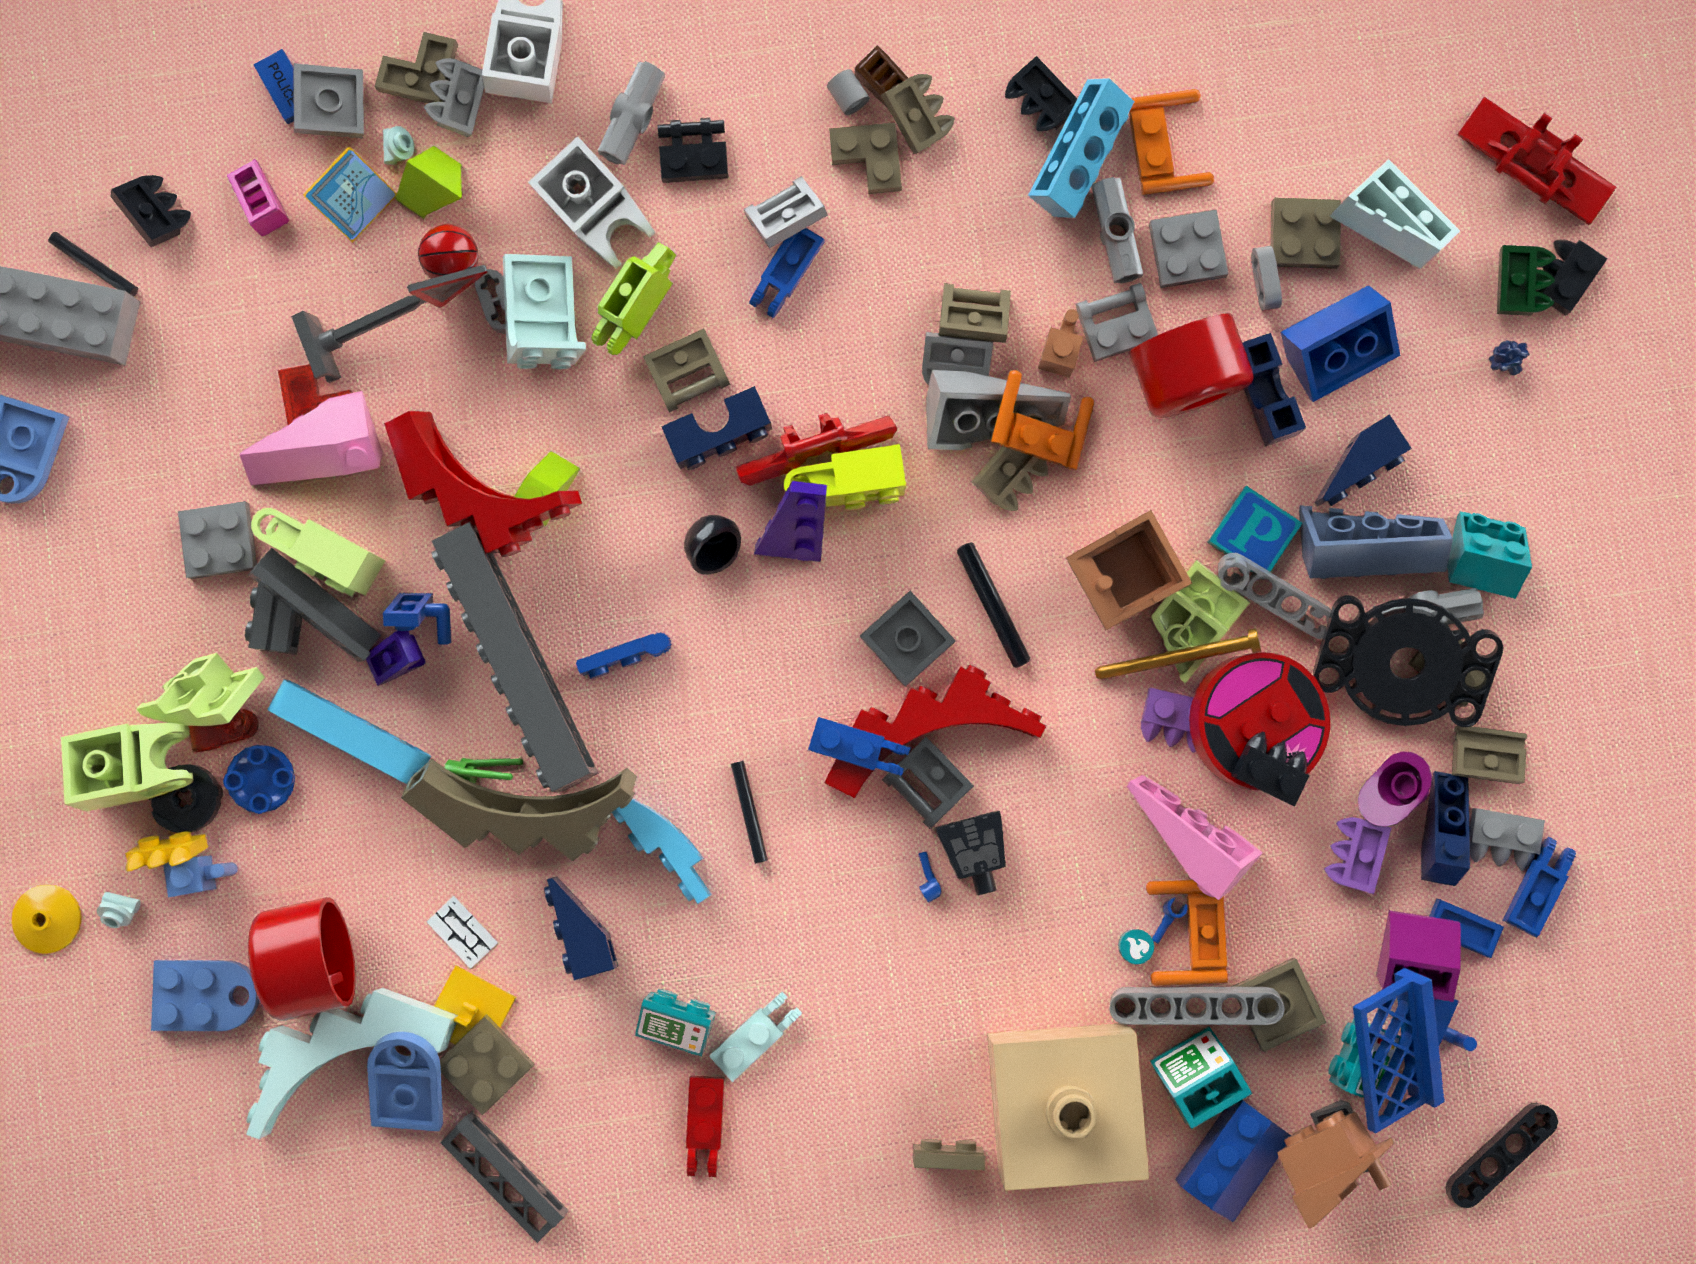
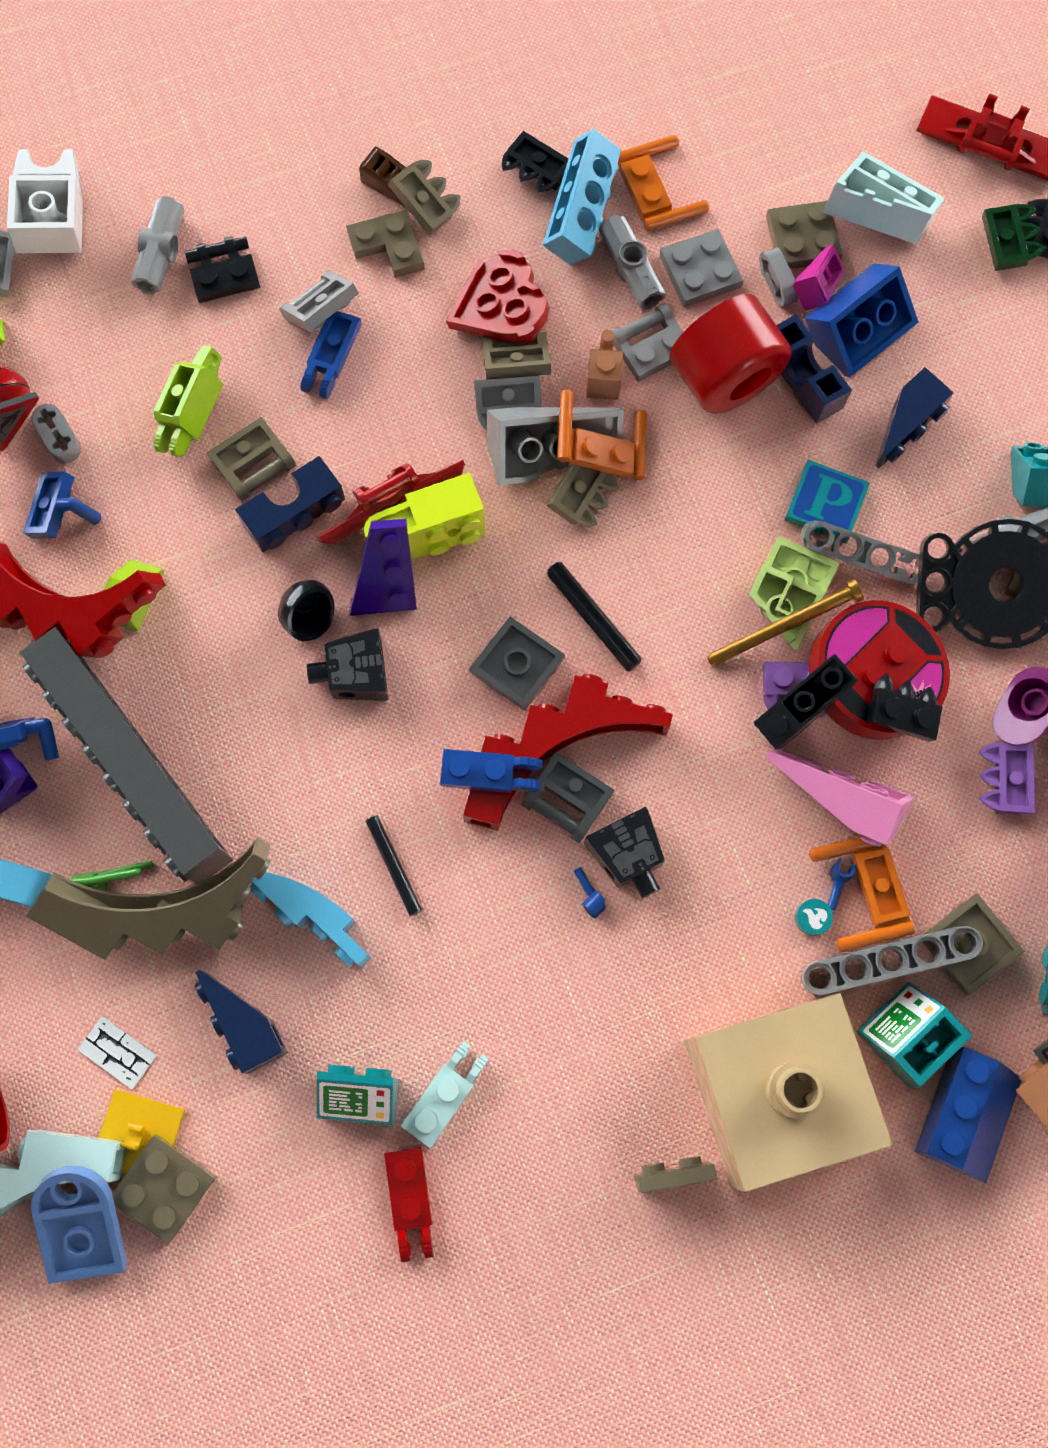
camera: 15 degrees left, 10 degrees down
(481, 379) = (49, 504): none -> blue plate
(510, 1170) = (209, 1300): dark grey fence -> none
(540, 311) = (99, 431): light aqua bracket -> none
(598, 208) = (129, 322): white brick -> none
(626, 654) = (237, 734): blue hinge -> none
(747, 610) = (353, 667): none -> torso
(848, 92) = (357, 191): light grey beam -> none
(972, 249) = (500, 300): none -> plate
(1128, 570) = (718, 546): nougat piece -> none
(1176, 744) = (805, 702): none -> black slope
(1306, 292) = (819, 279): none -> dark pink slope
(1372, 544) = (941, 487): sand blue wedge -> none
(1509, 357) = (1018, 301): dark blue plant -> none

